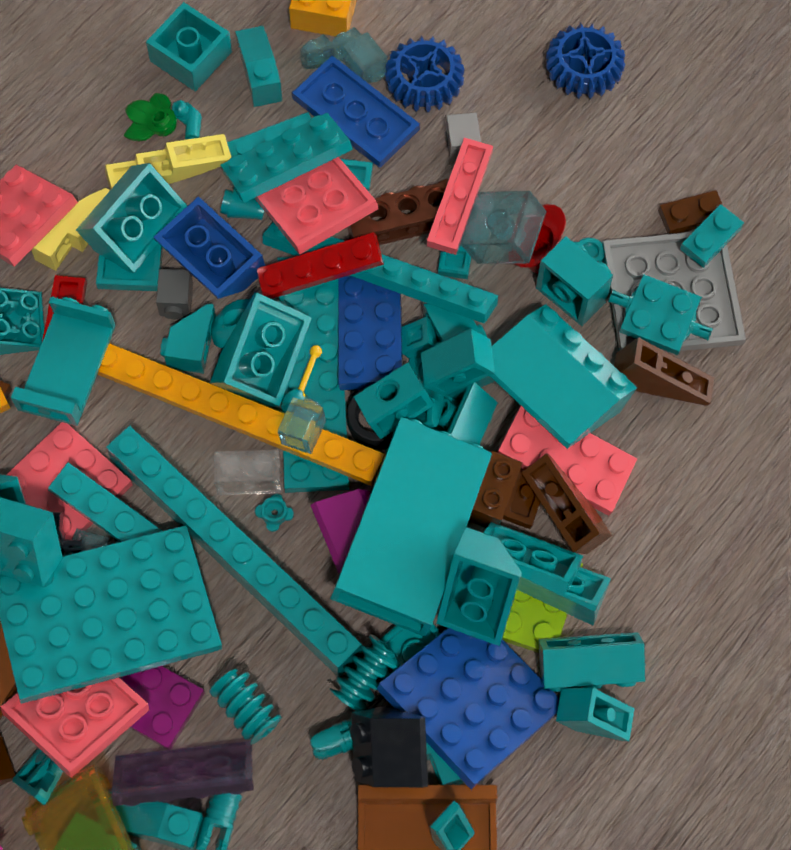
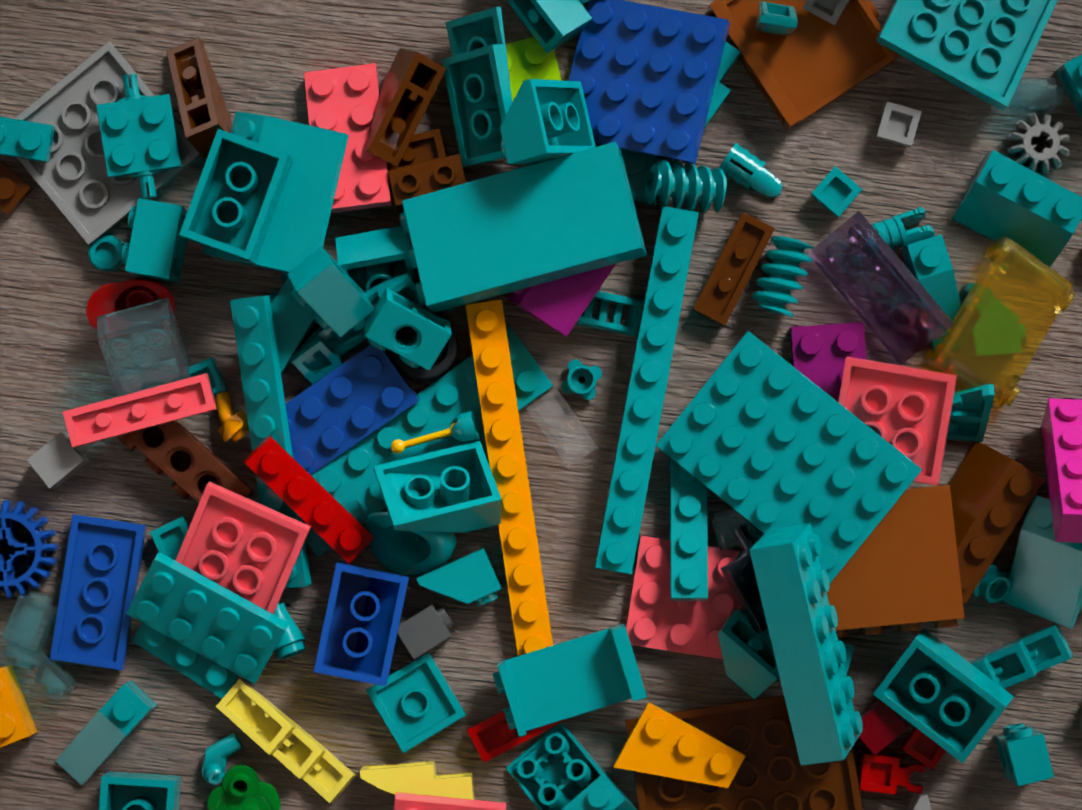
camera: 115 degrees left, 20 degrees up
(131, 216) = (375, 725): teal slope -> none
(278, 675) = (733, 269): none -> reddish brown plate
(283, 794) = (836, 192): none -> teal plate
(302, 424) = (491, 397): clear light blue brick -> none
(305, 552) = (600, 323): none -> teal slope
(389, 748) = (742, 116): black slope -> none
(413, 257) = (233, 425): none -> light orange plate
(569, 333) = (236, 196): none -> teal brick

